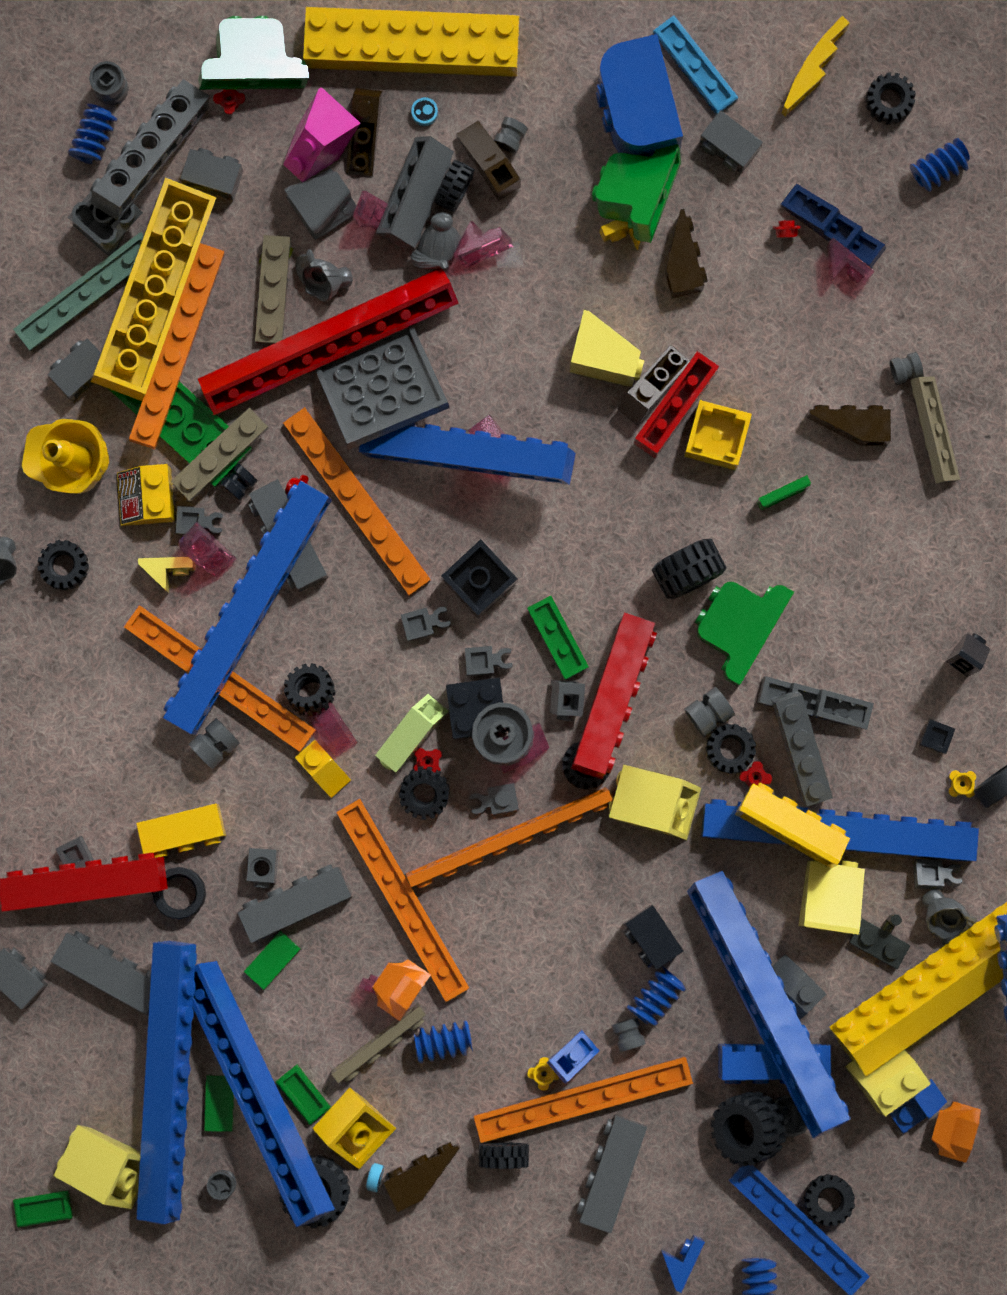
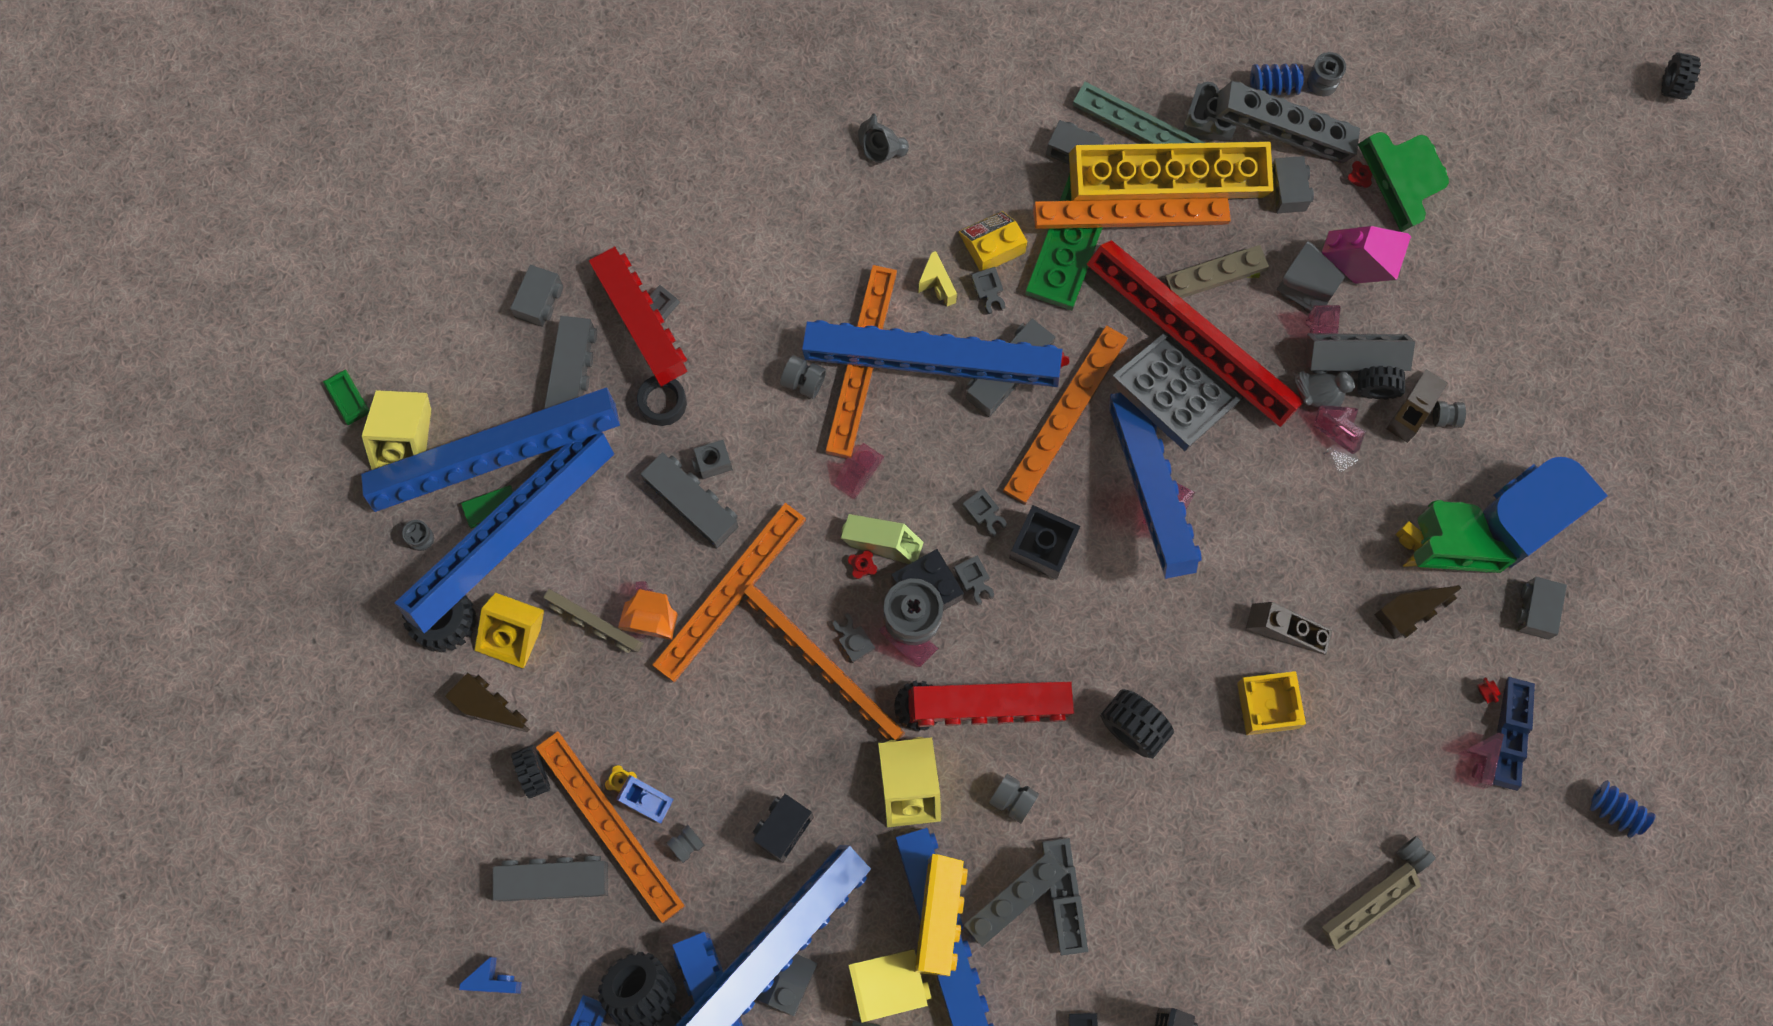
camera: 65 degrees right, 10 degrees down
(65, 455) = (997, 162): yellow piece -> none
(79, 565) = (904, 211): black tyre -> none
(182, 830) = (717, 380): yellow brick -> none
(206, 550) = (966, 304): clear pink slope -> none
(219, 454) = (1054, 282): dark tan plate -> none
(234, 486) = (1033, 306): black wheel -> none
(272, 960) = (633, 501): green tile -> none
(303, 1094) = (524, 575): green tile -> none
(319, 699) = (888, 426): black tyre -> none
(321, 277) = (1247, 307): dark grey hair -> none
(323, 768) = (819, 478): yellow slope -> none
(363, 144) = (1386, 294): dark brown slope -> none
(375, 1177) = (471, 665): medium azure tile -> none
(411, 41) = (1488, 300): yellow brick -> none
(420, 808) = (819, 565): black tyre -> none
(424, 111) = (1432, 336): tile -> none
(443, 1041) = (614, 676): blue piece -> none
(557, 637) = (1022, 634): green plate -> none
(575, 694) = (979, 668): dark grey brick -> none
(604, 353) = (1296, 568): light yellow slope -> none
(657, 997) = (729, 856): blue piece -> none
(676, 404) = (1281, 653): red brick -> none
(695, 65) = (1594, 550): dark azure tile -> none
(740, 624) = (1107, 795): green brick -> none
(747, 748) = (988, 816): black tyre -> none
(756, 769) = (979, 866): red plate -> none
(784, 493) = (1246, 786): green tile -> none
(811, 72) = (1643, 655): yellow slope -> none
(861, 426) = (1341, 832): dark brown slope -> none
(890, 83) = (1670, 730): black tyre -> none

